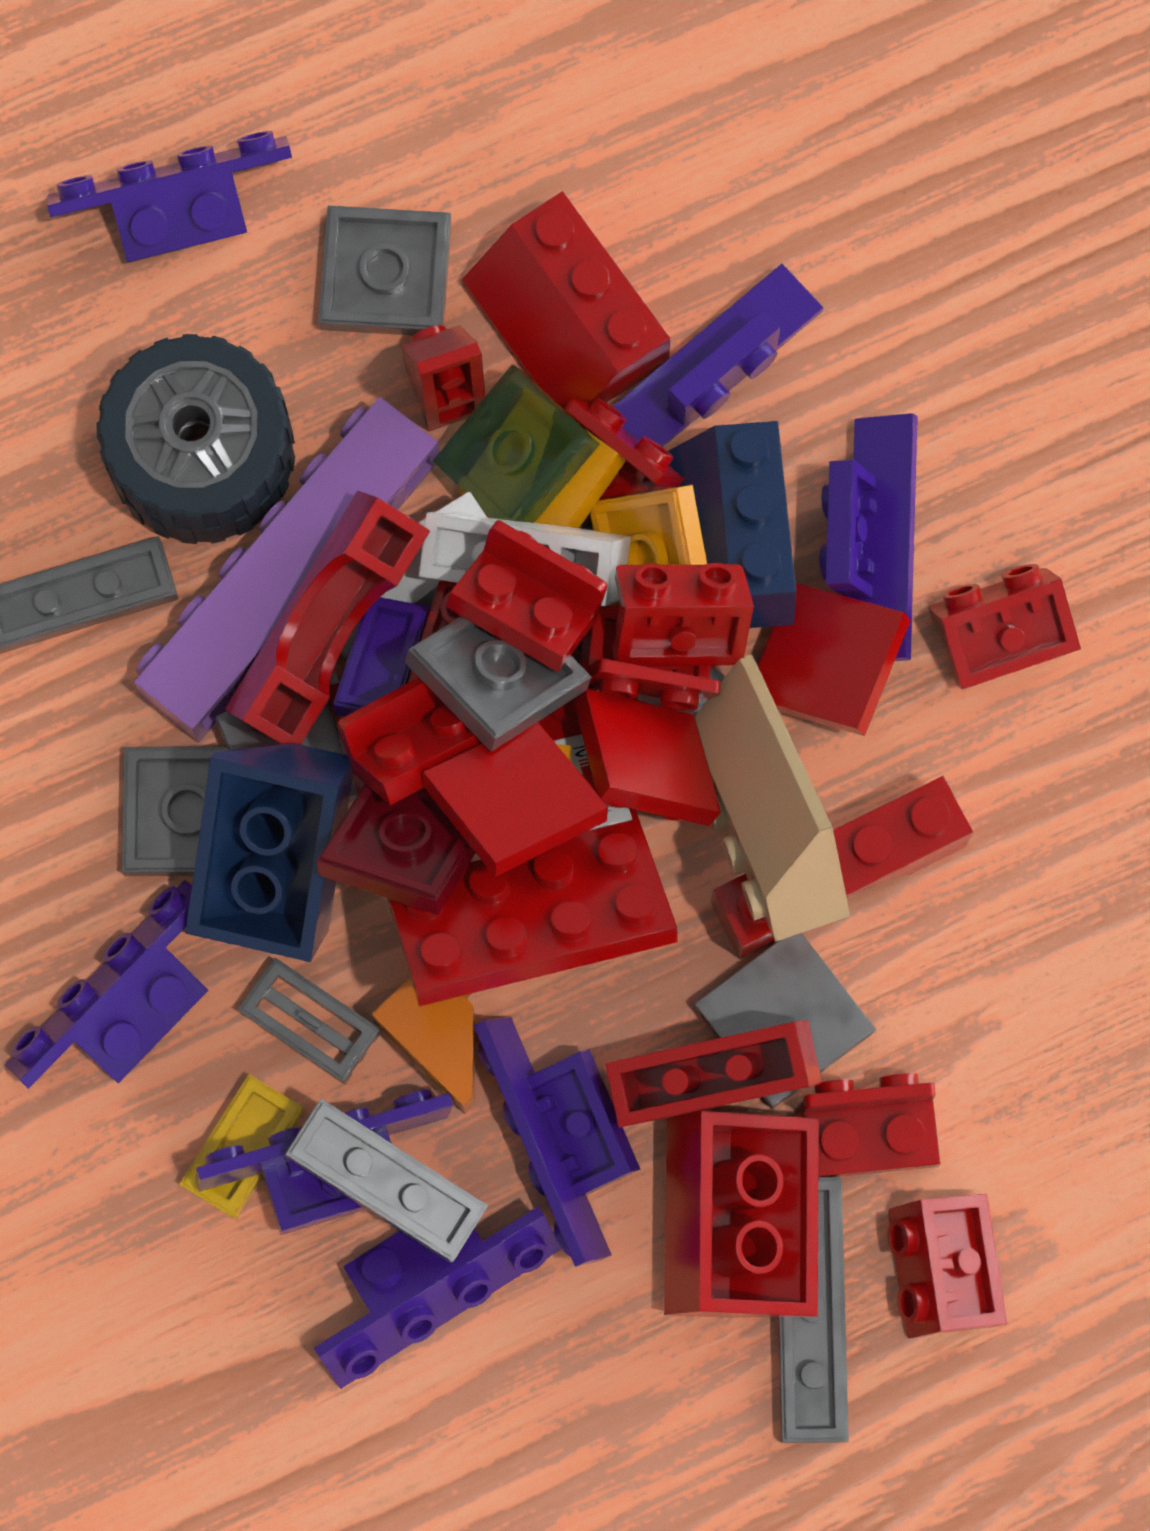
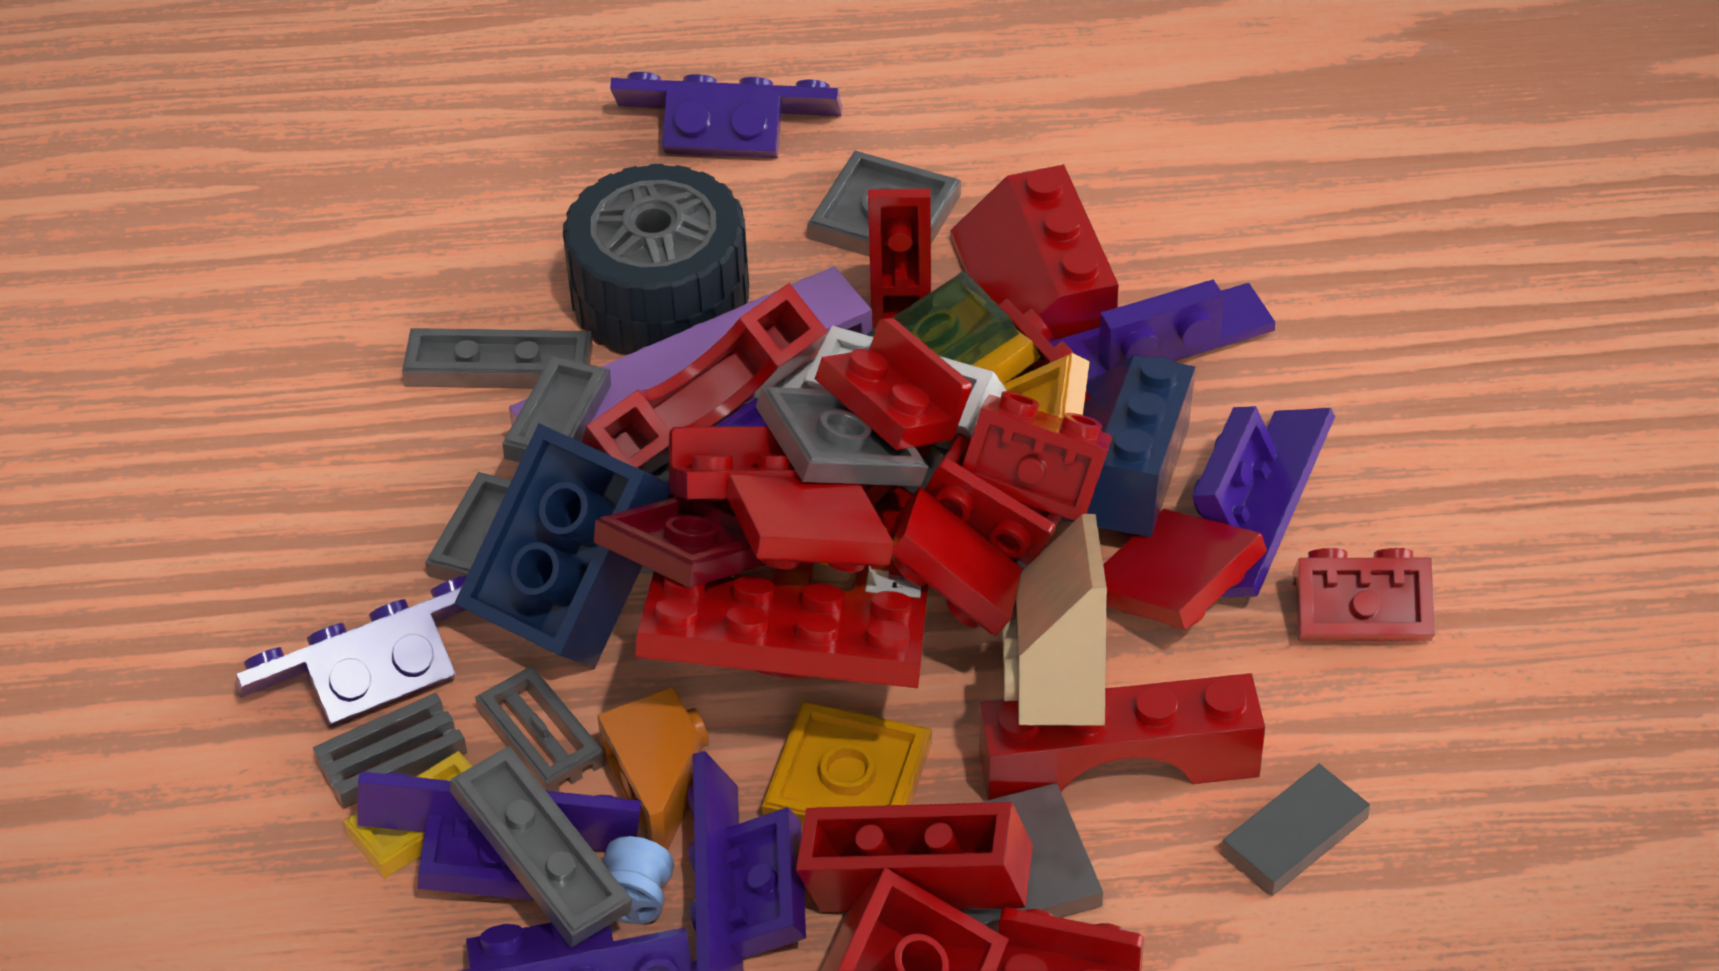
camera: 20 degrees right, 30 degrees down
(189, 682) = (562, 400): none -> flat silver tile
(219, 1047) = (385, 743): none -> flat silver tile
(468, 1159) = (641, 871): none -> light blue wheel
(610, 999) = (847, 761): none -> light orange tile
(1017, 900) = (1295, 829): none -> dark grey tile

